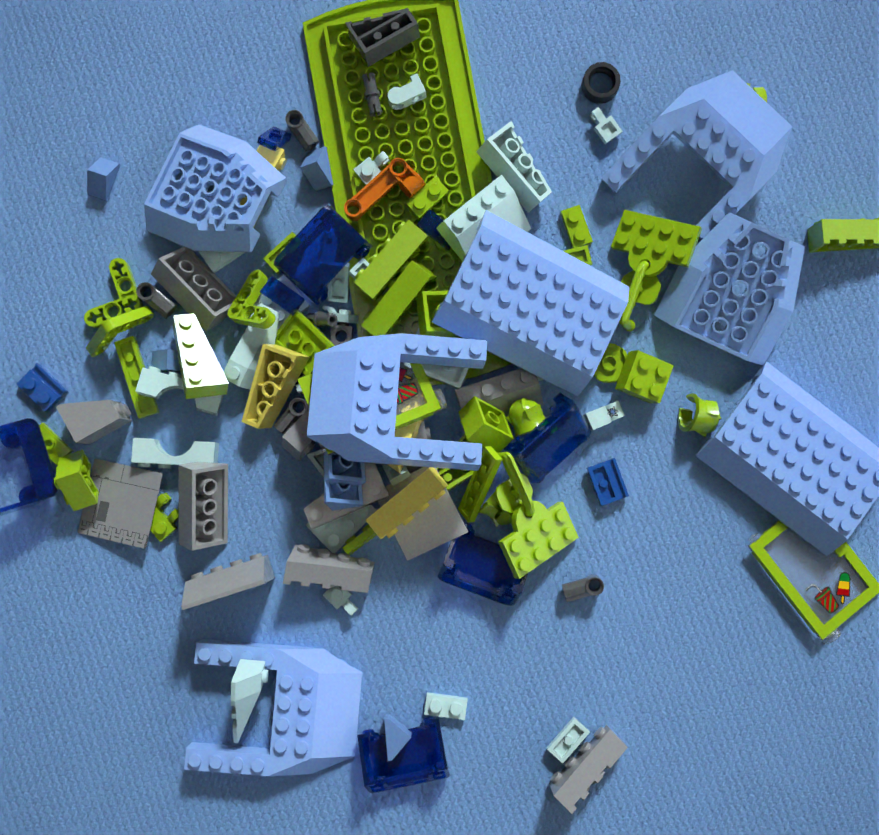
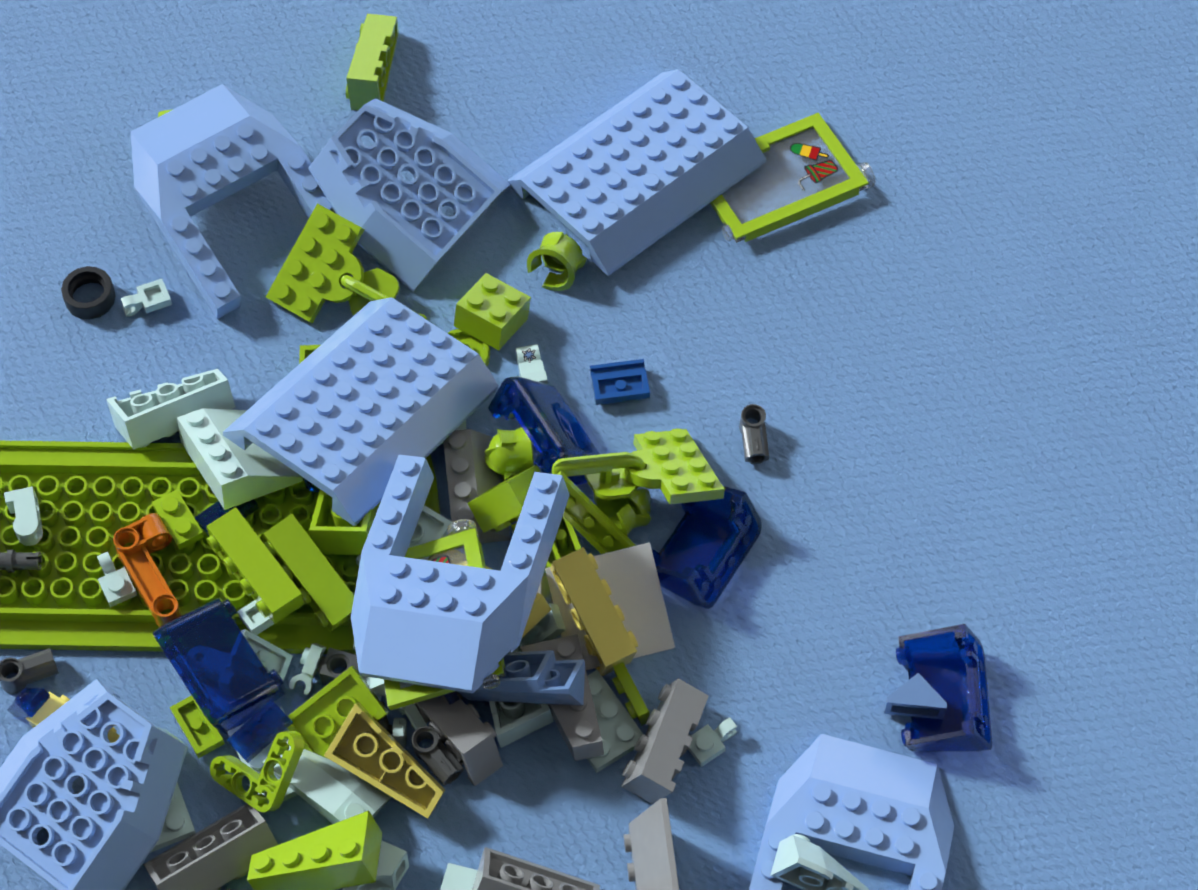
camera: 75 degrees left, 25 degrees down
(317, 169) = (90, 657): medium blue slope -> none
(322, 319) = (308, 683): dark grey axle -> none
(445, 706) = (885, 633): light aqua plate -> none
(568, 740) = (952, 490): light aqua plate -> none
(576, 226) = (270, 357): lime plate -> none
(586, 767) = (992, 471): light grey wedge -> none

